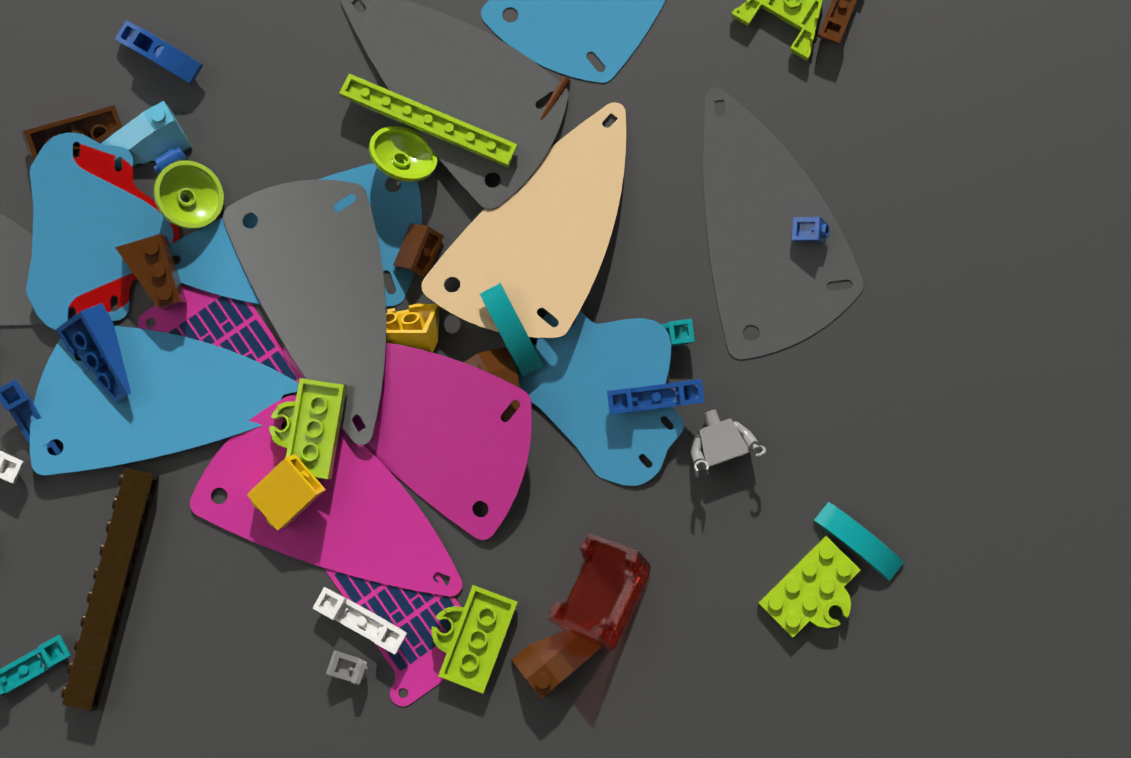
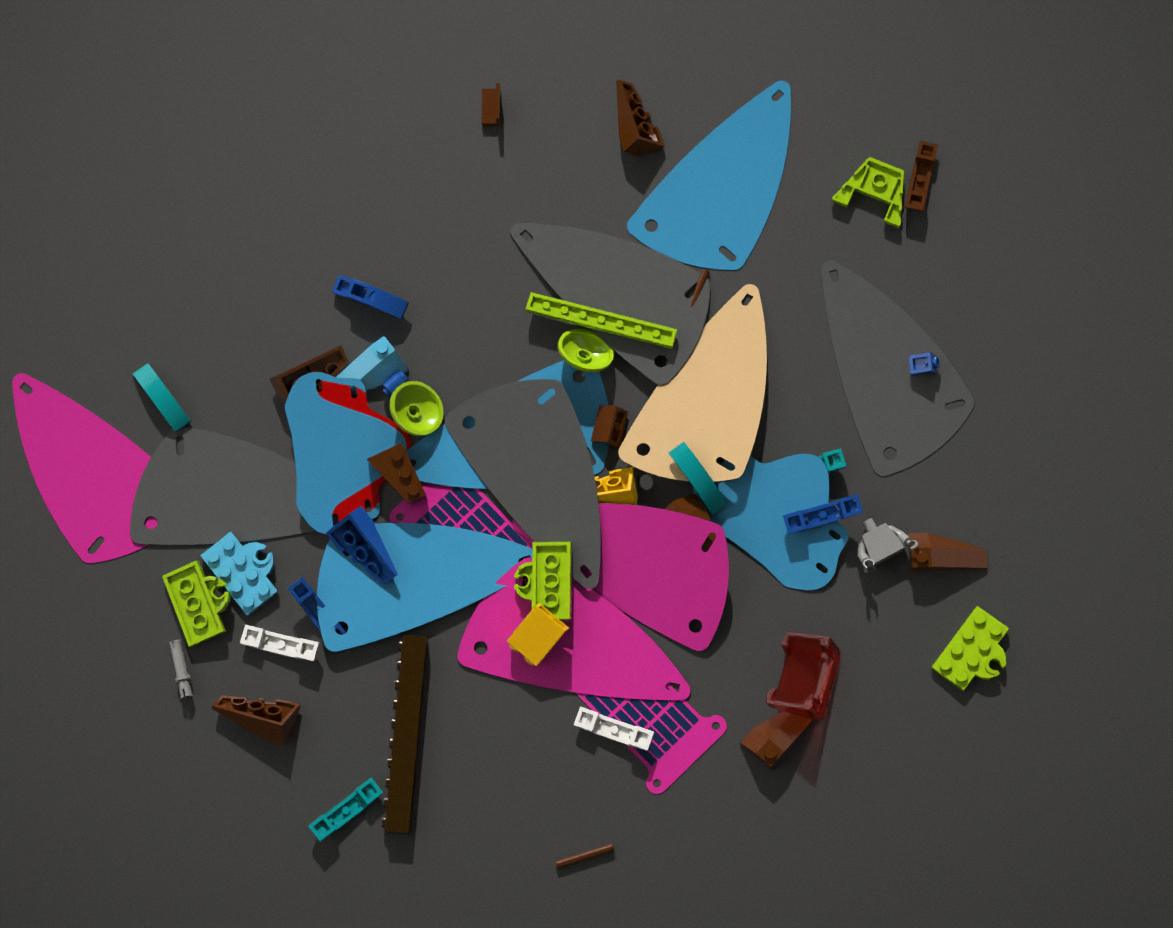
camera: 10 degrees left, 5 degrees down
(347, 667) = (609, 768): light grey bracket -> none
(474, 637) = (707, 728): lime plate -> none
(797, 466) = (942, 554): none -> reddish brown wedge
(859, 540) = (1004, 605): teal slope -> none

